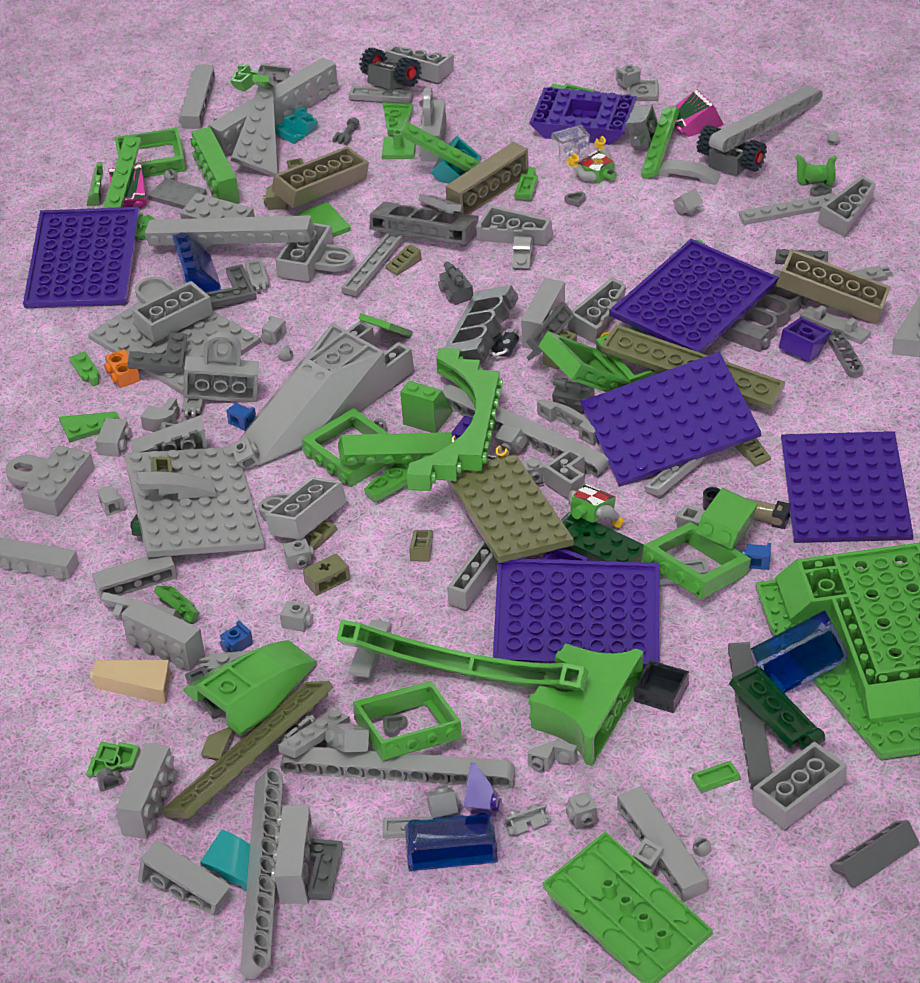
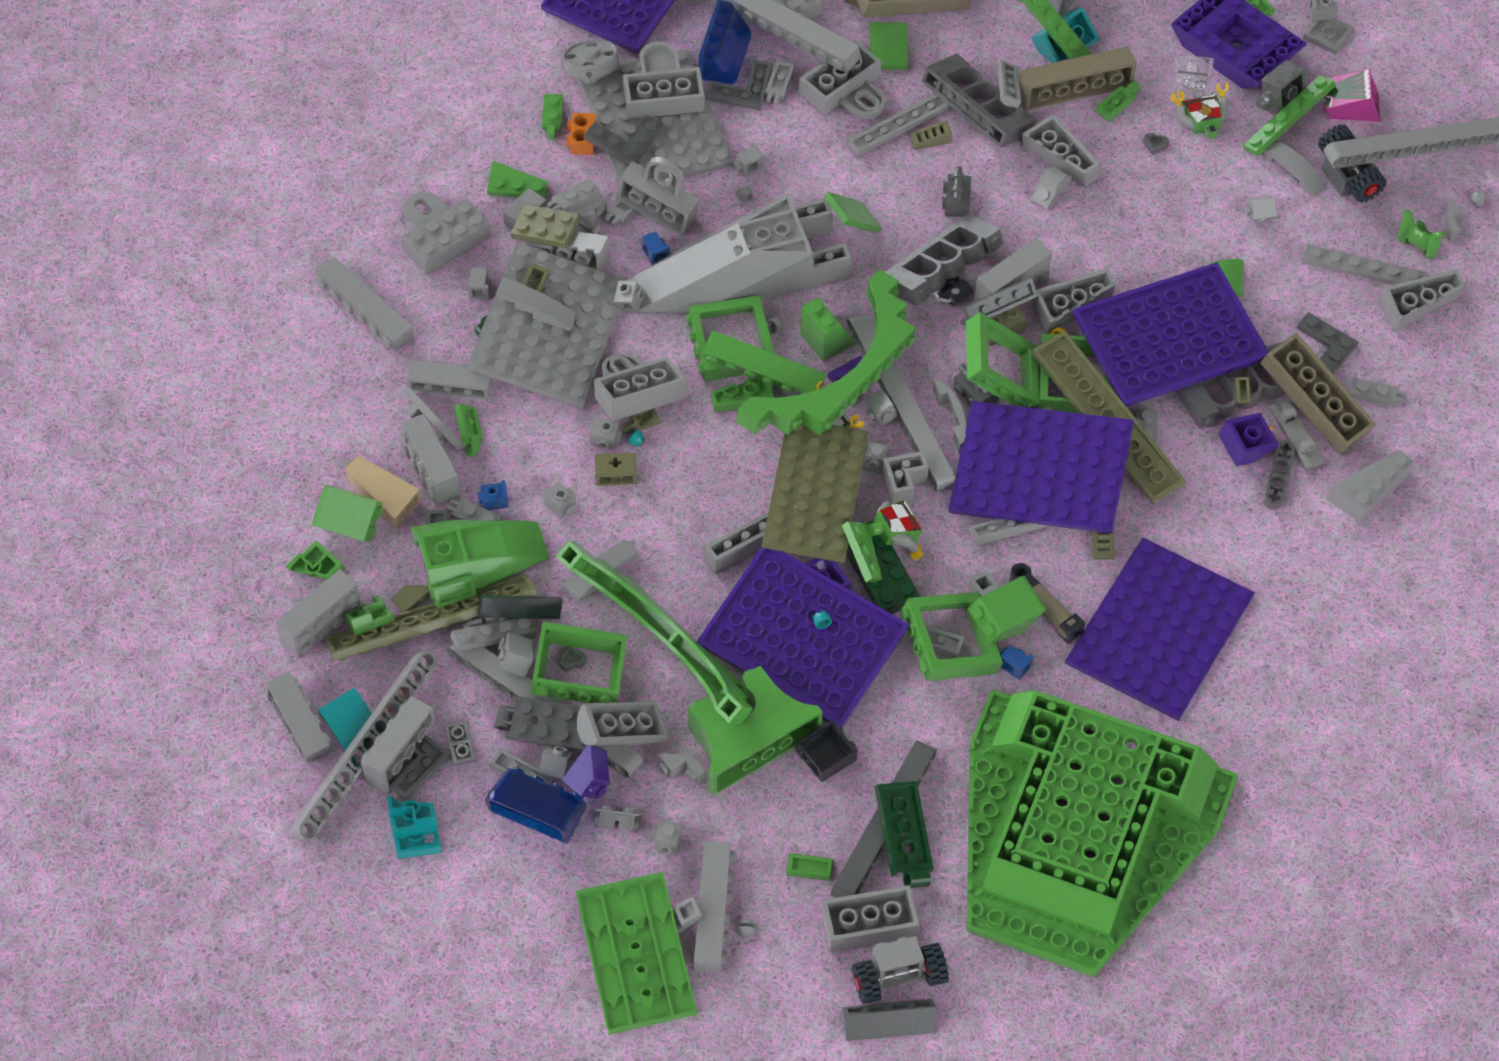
camera: 25 degrees right, 15 degrees up
(94, 317) = (591, 60): none -> light grey piece
(108, 779) = (299, 582): flat silver tile -> none
(119, 703) = (347, 513): none -> bright green slope
(141, 433) = (545, 226): none -> olive plate
(150, 407) = (575, 196): none -> light grey hinge
(192, 773) = (369, 616): none -> bright green slope
(256, 717) = (454, 591): none -> bright green tile
(323, 702) = (520, 607): none -> black tile
(326, 547) = (636, 438): none -> teal hinge
(343, 831) = (459, 742): none -> light grey slope
(348, 915) = (410, 824): none -> teal slope
(421, 548) = (717, 491): olive slope -> none
(422, 774) = (554, 728): none -> dark grey hinge
(480, 741) = (621, 723): none -> light grey brick
(582, 528) = (863, 550): none -> bright green wing
(587, 590) = (822, 620): none -> teal hinge
(775, 308) = (1242, 389): none -> olive piece
(801, 652) = (966, 787): clear blue windscreen -> none
(820, 189) = (1413, 259): flat silver tile -> none
(824, 152) = (1452, 217): none -> light grey slope
(853, 803) = (897, 964): none -> brick

